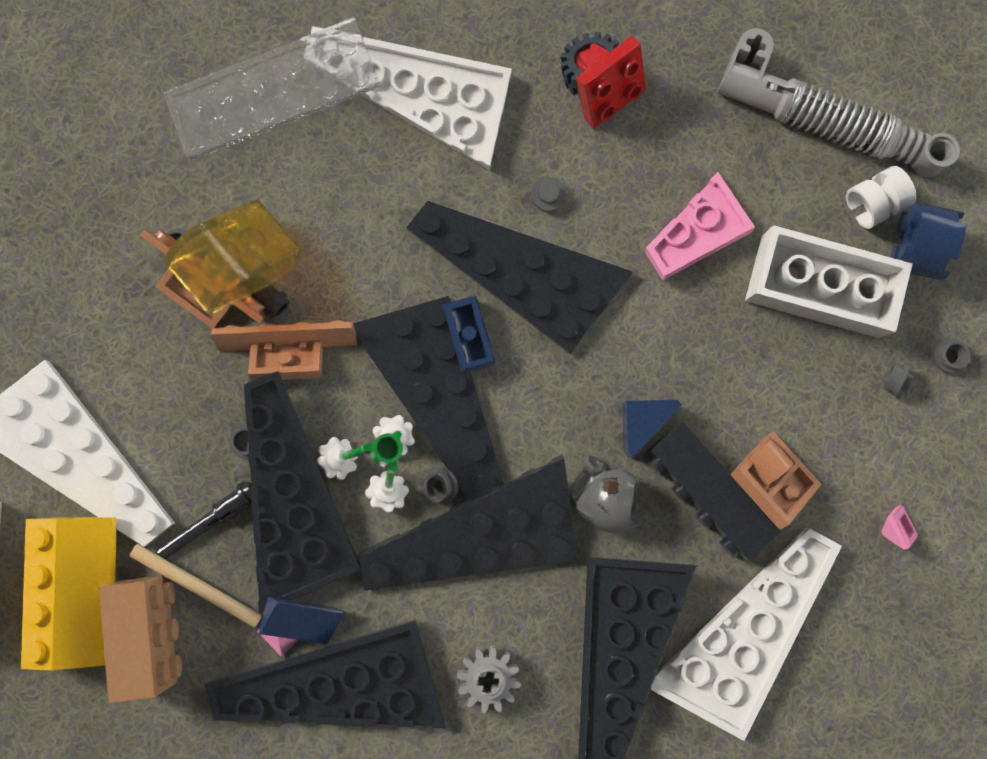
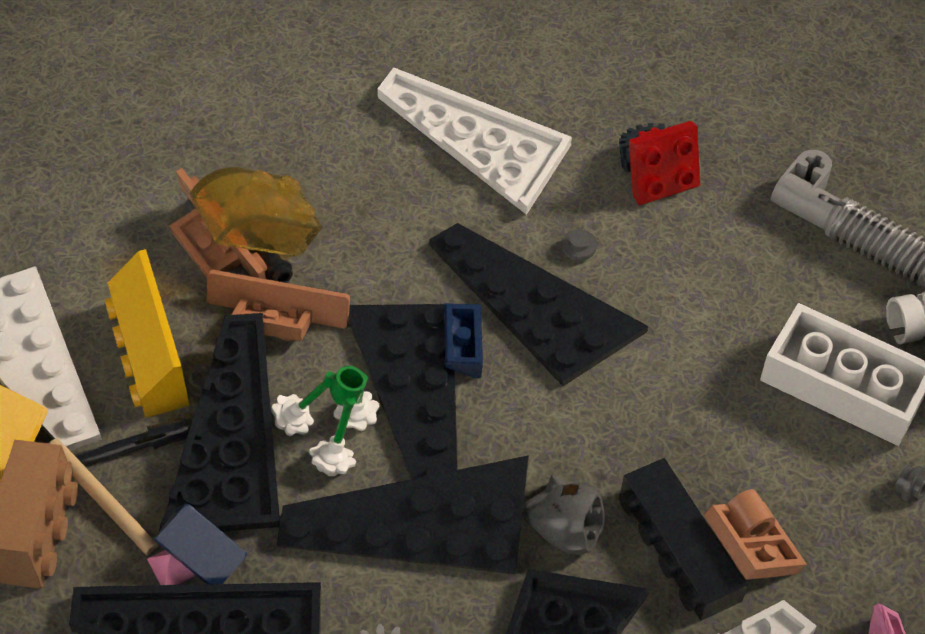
camera: 15 degrees right, 30 degrees down
(178, 417) = (147, 338): none -> yellow slope
(272, 89) = (338, 103): clear plate -> none
(433, 489) = (390, 465): dark grey plate -> none
(643, 420) = (625, 452): dark blue slope -> none
(701, 229) = (728, 307): bright pink wing -> none

